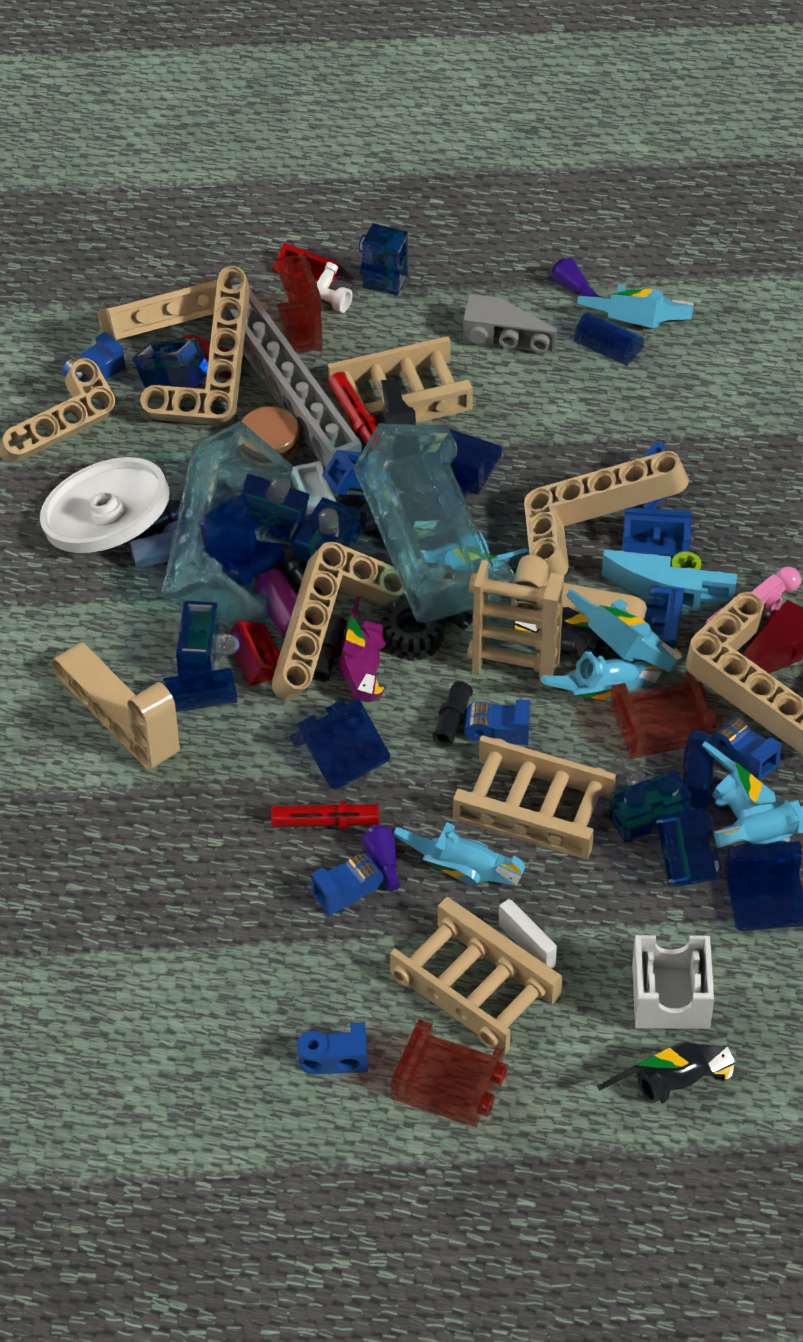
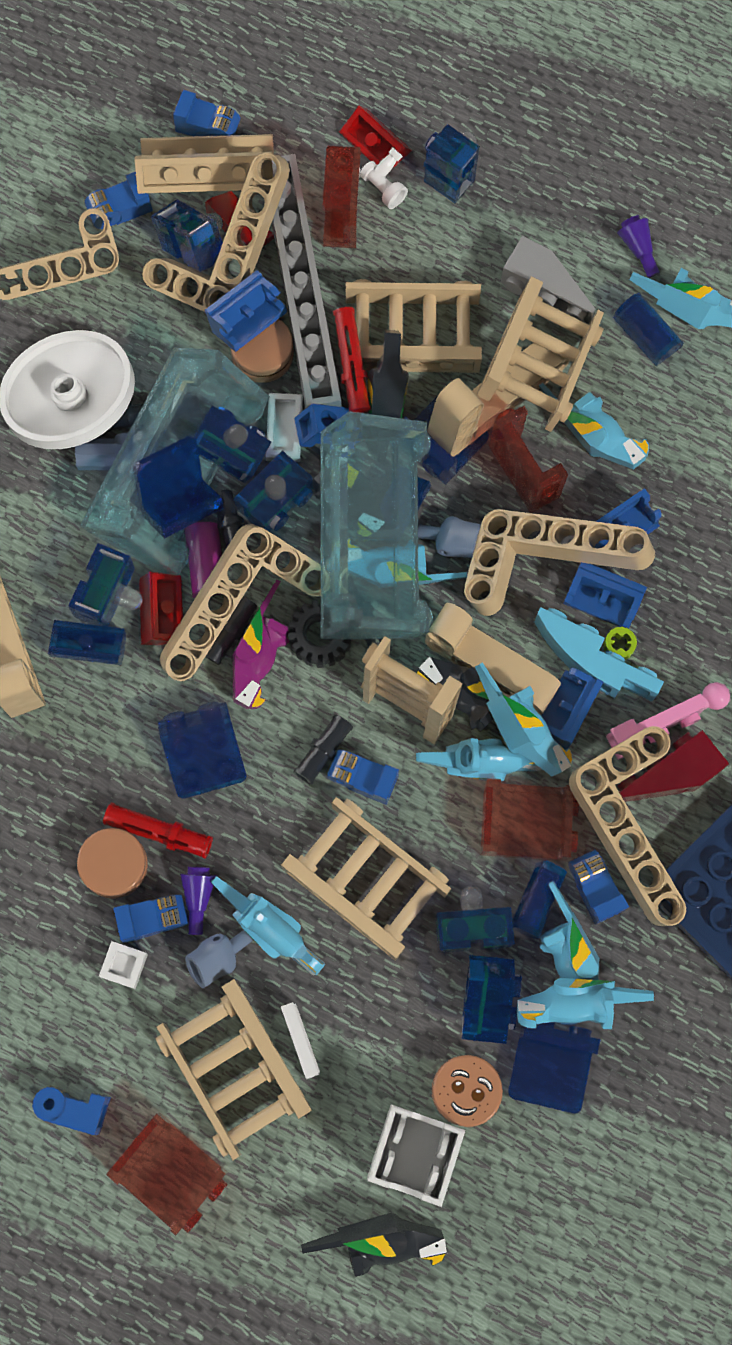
camera: 15 degrees right, 25 degrees up
(143, 285) = (203, 118): none -> blue leg
(247, 400) = (245, 311): none -> blue hinge
(293, 850) = (112, 863): none -> nougat head
(336, 926) = (123, 965): none -> white plate
(420, 894) = (215, 957): none -> sand blue piece
(485, 417) = (463, 416): none -> tan beam
(496, 372) = (510, 353): none -> tan fence
(505, 526) = (453, 537): none -> sand blue piece
(539, 450) = (531, 484): none -> clear red panel
(596, 418) = (601, 433): none -> medium azure animal
(698, 918) = (467, 1091): none -> nougat head

